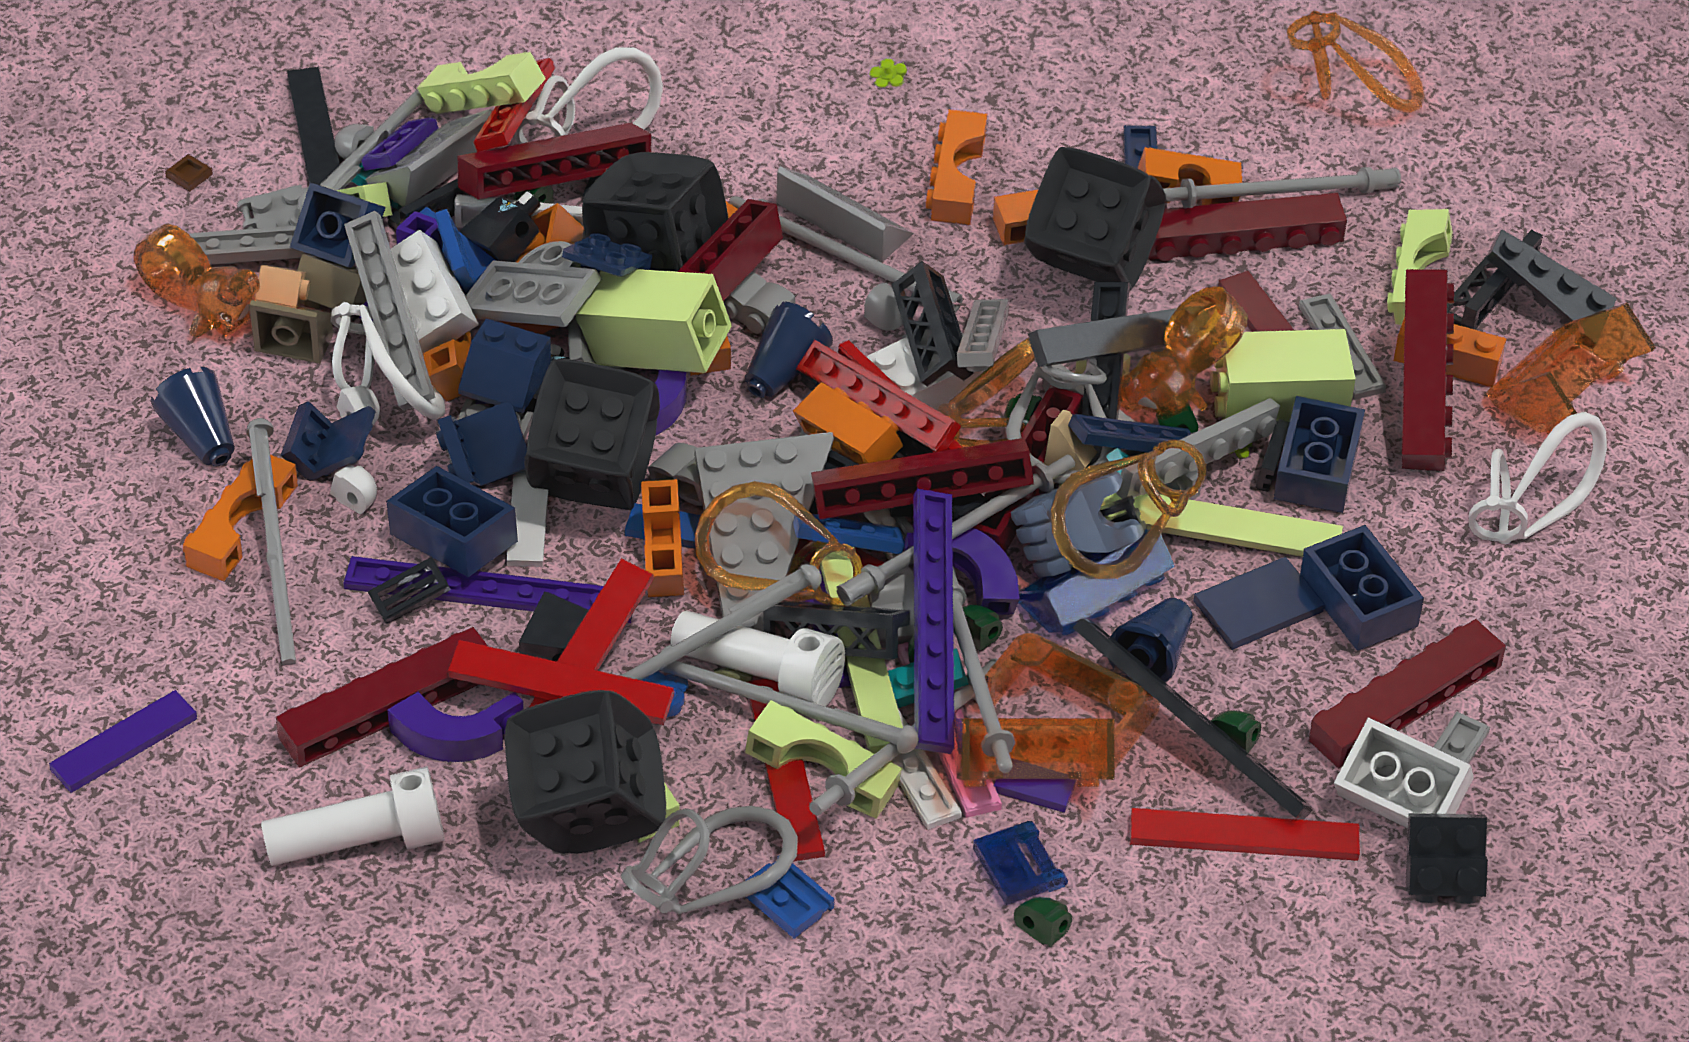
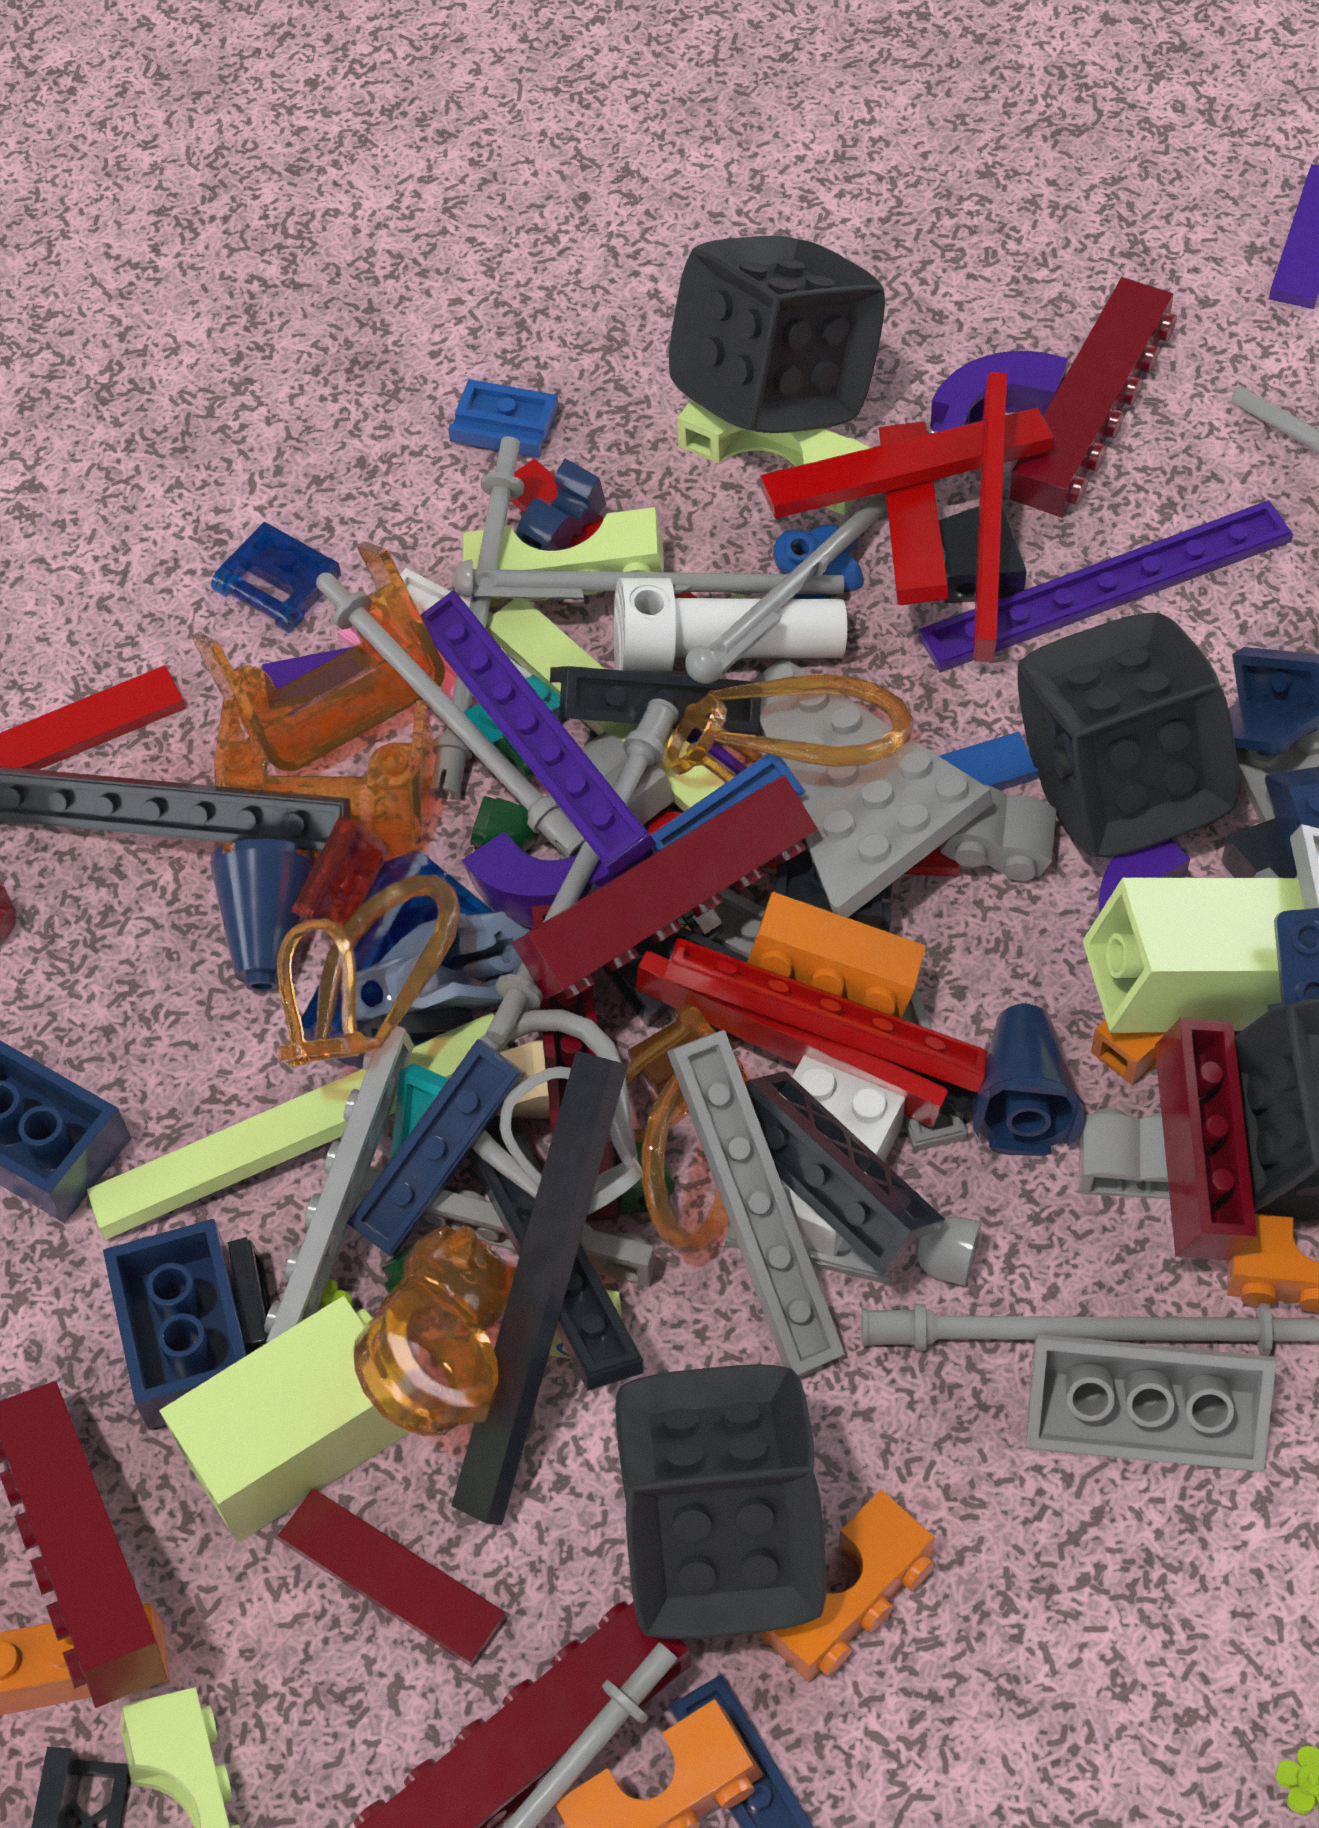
camera: 155 degrees right, 10 degrees up
(405, 810) = (951, 272): white piece -> none
(414, 602) = (1193, 522): black tile -> none
(452, 521) = (1214, 589): dark blue brick -> none
(545, 607) = (990, 518): none -> red tile
(663, 537) = (970, 725): orange arch -> none
(701, 835) = (549, 380): light grey animal -> none
(803, 788) = (554, 523): none -> dark blue leg
(953, 192) = (1013, 1536): orange arch -> none
(1043, 919) = (212, 525): dark green piece -> none
(1103, 602) = (341, 874): none -> clear red tile
(1239, 726) = (107, 855): dark green piece -> none
(1258, 603) = (170, 1063): dark blue tile -> none
(1324, 314) = (254, 1599): light grey tile -> none

